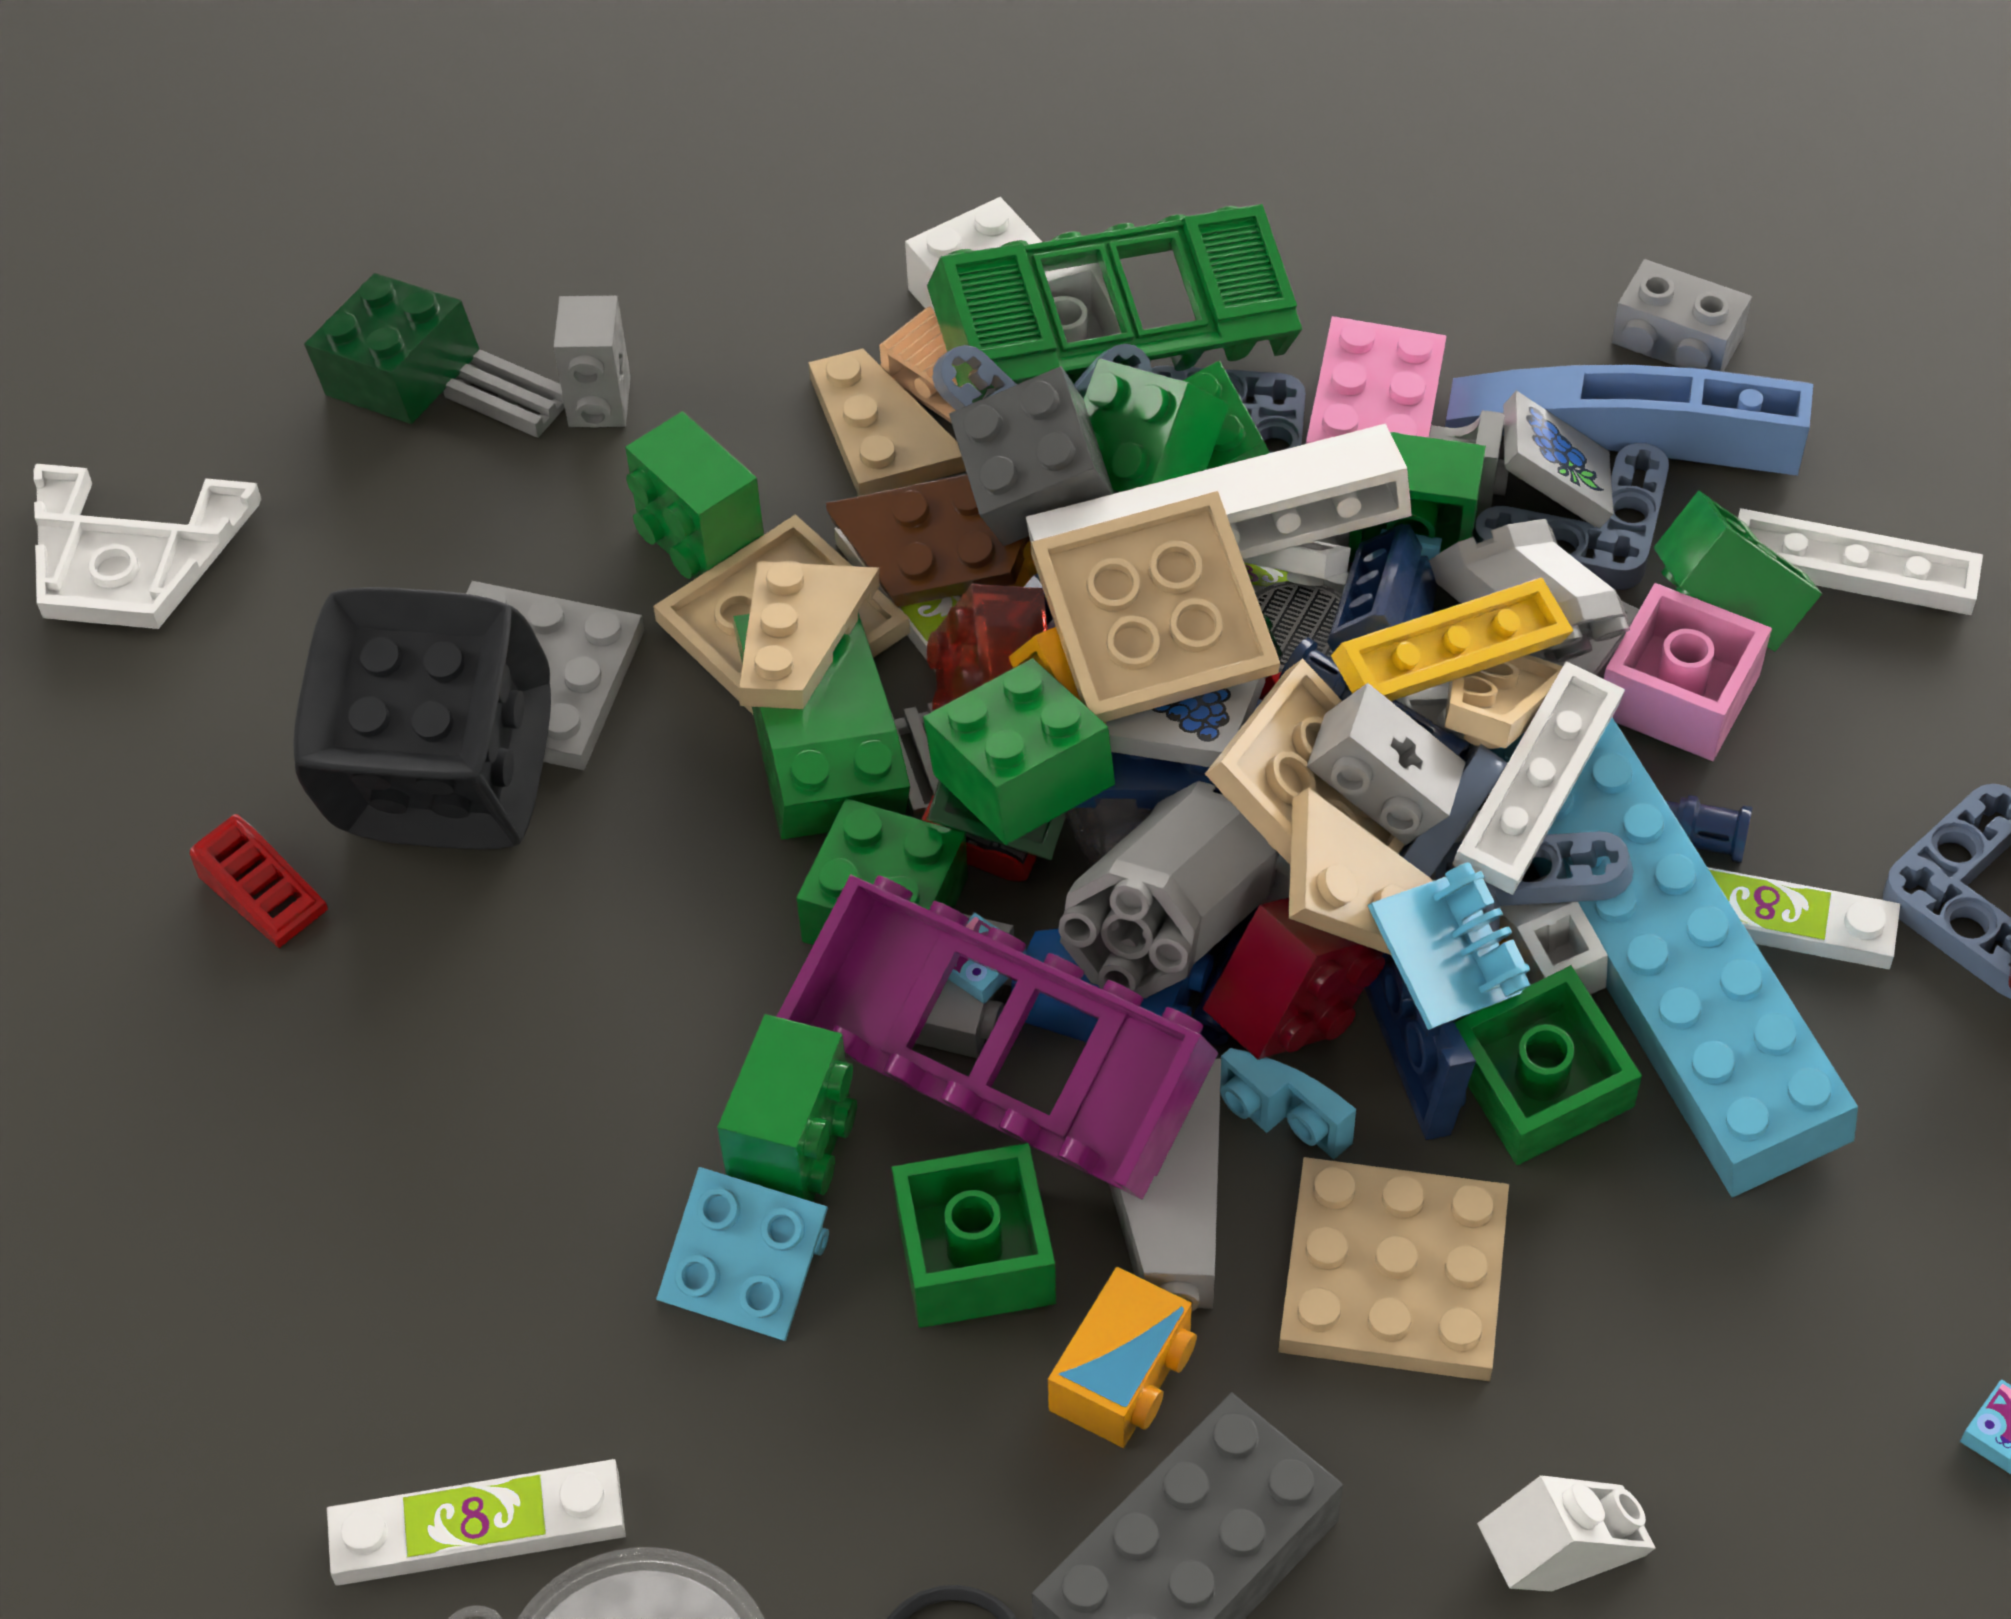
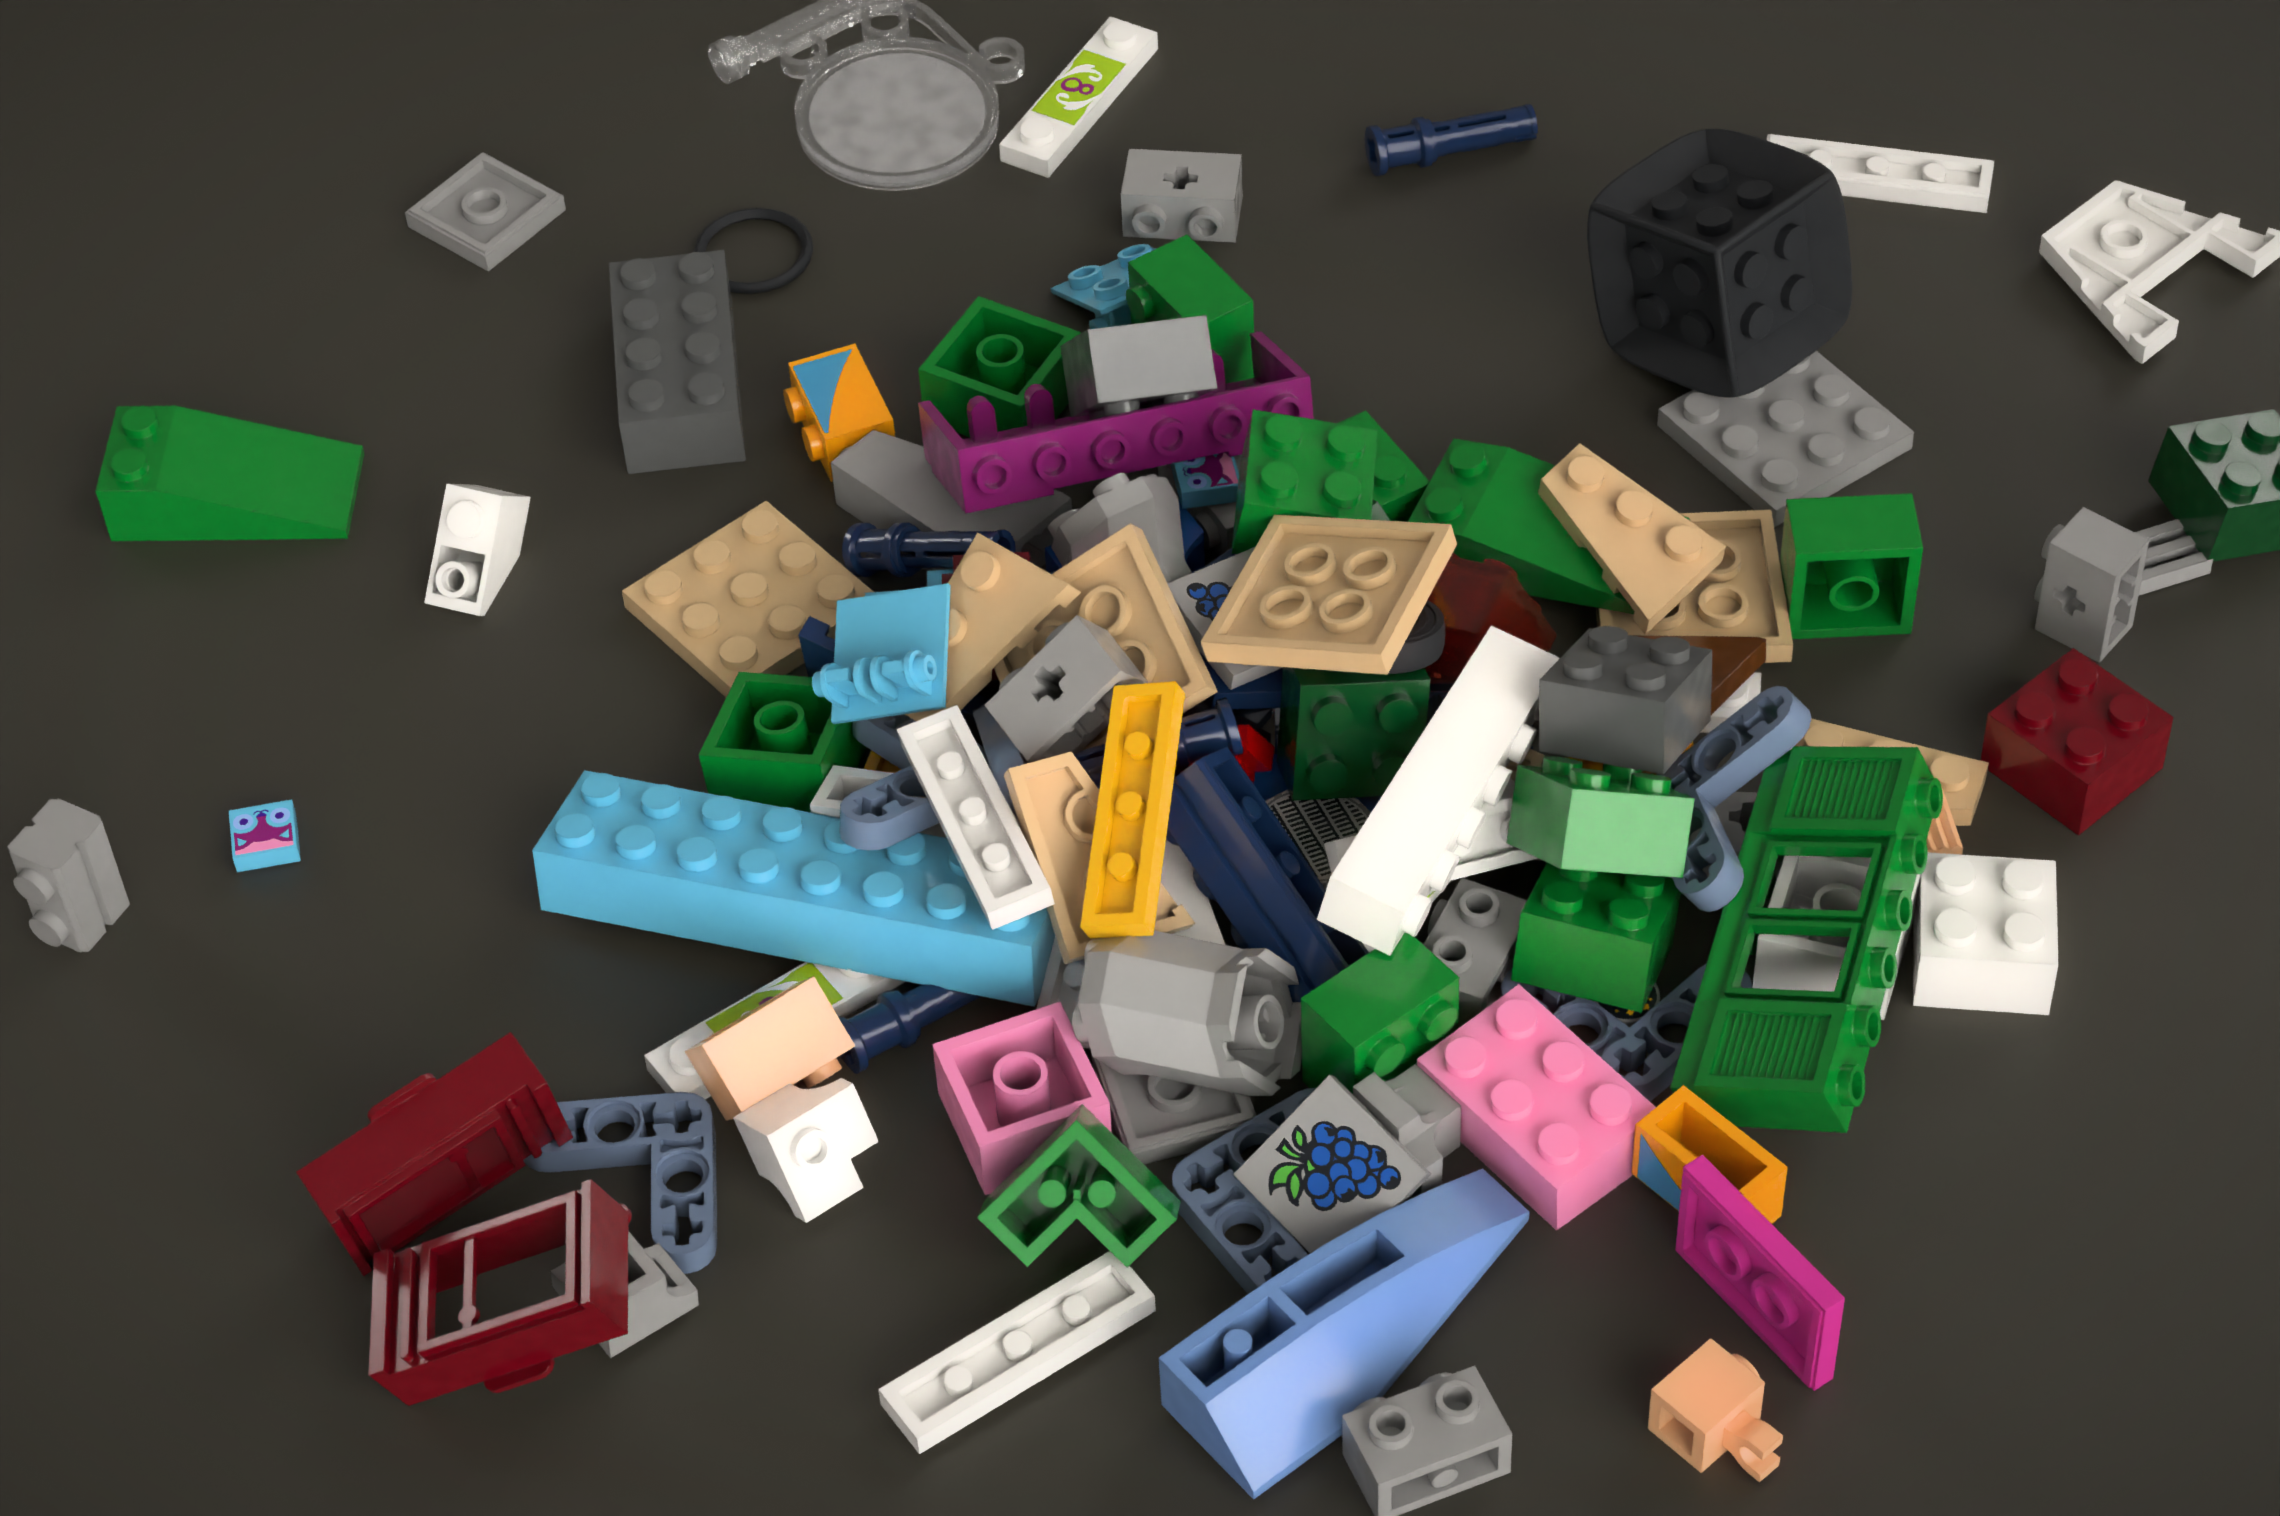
camera: 130 degrees right, 5 degrees down
(124, 795) = (1901, 174): none -> white tile
(337, 1145) = (1427, 140): none -> dark blue pin
(591, 1323) = (1181, 195): none -> light grey brick
(750, 318) = (2076, 741): none -> dark red brick
(952, 1007) = (1138, 366): none -> brick
(1250, 1147) = (907, 549): none -> dark blue pin
(1336, 281) = (1689, 1127): none -> light orange brick
(1399, 217) = (1759, 1273): none -> dark pink tile
(1502, 211) = (1715, 1407): none -> light nougat brick
(1815, 853) = (771, 1046): none -> light nougat brick
(1860, 775) = (807, 1143): none -> white brick

